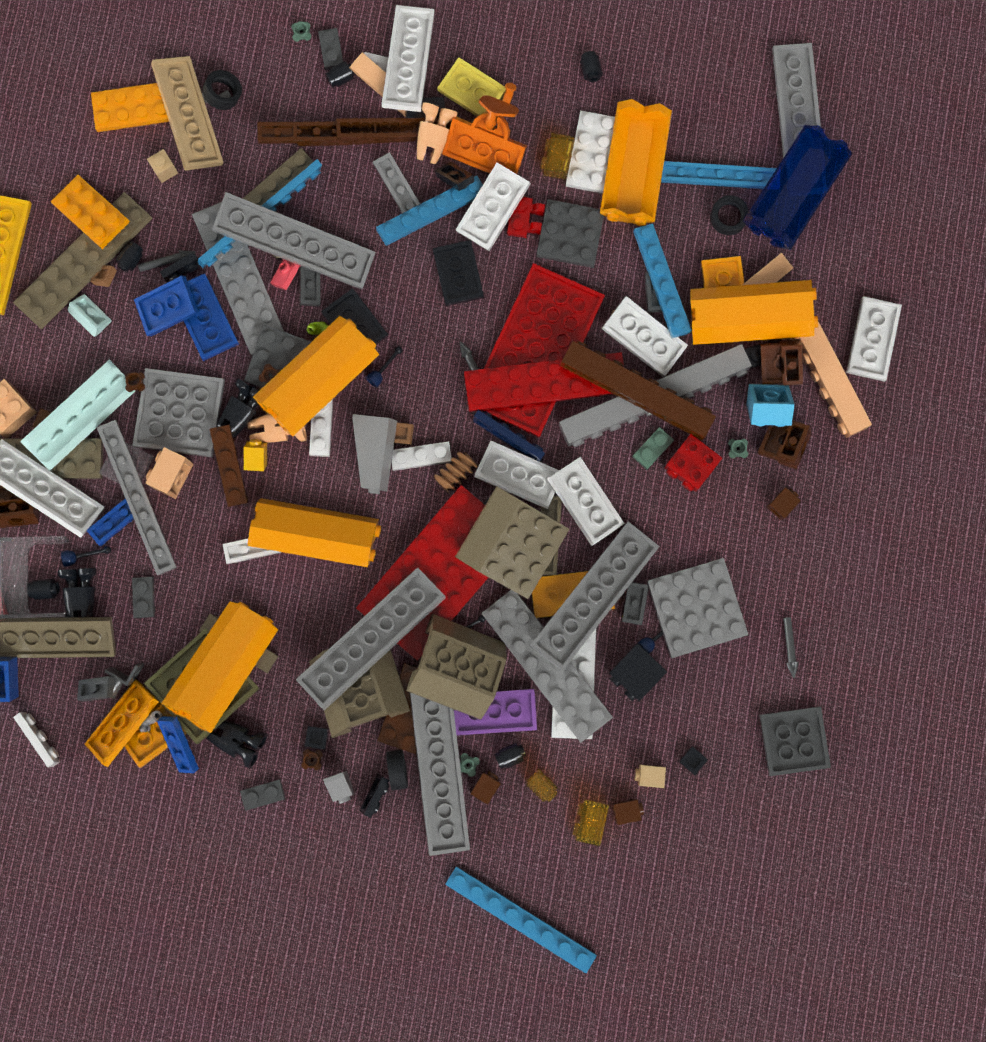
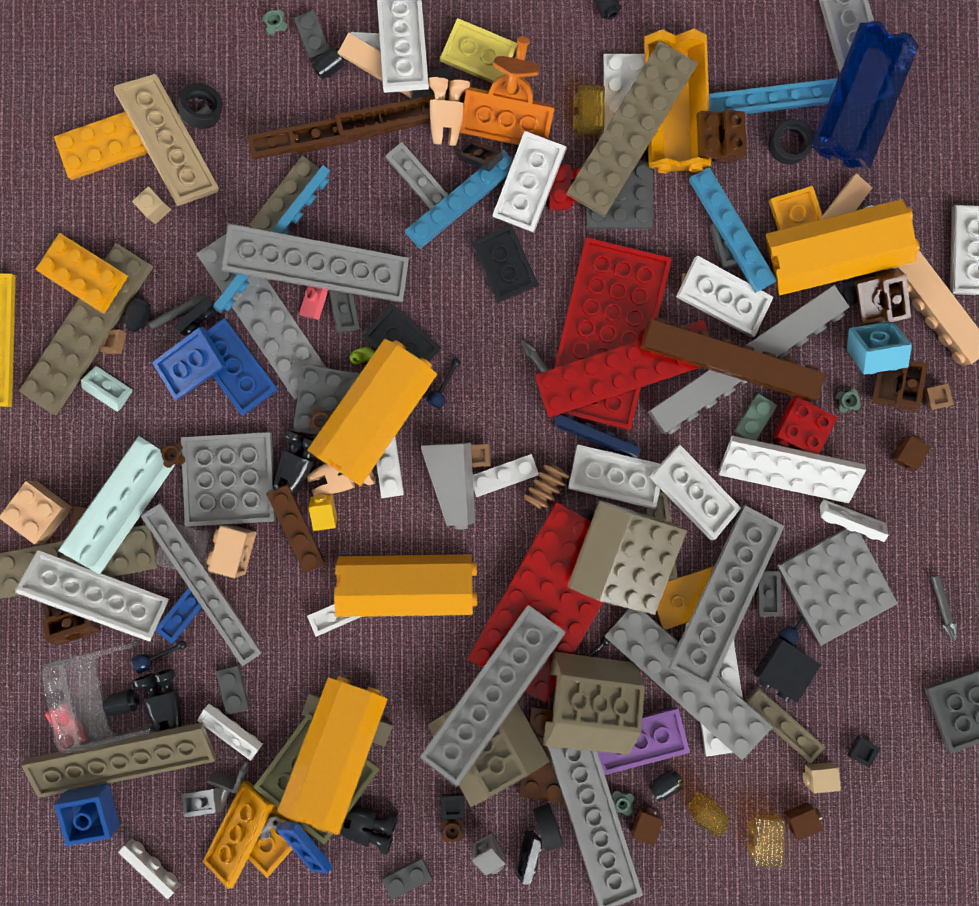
camera: 15 degrees left, 5 degrees up
(133, 633) = (229, 732): none -> white plate
(590, 178) = (632, 128): none -> dark tan plate
(628, 725) = (785, 725): none -> dark tan tile
(667, 198) = (721, 135): none -> reddish brown brick
(674, 497) = (791, 469): none -> white plate
(722, 553) = (853, 520): none -> white plate
(818, 459) = (938, 397): none -> medium nougat plate

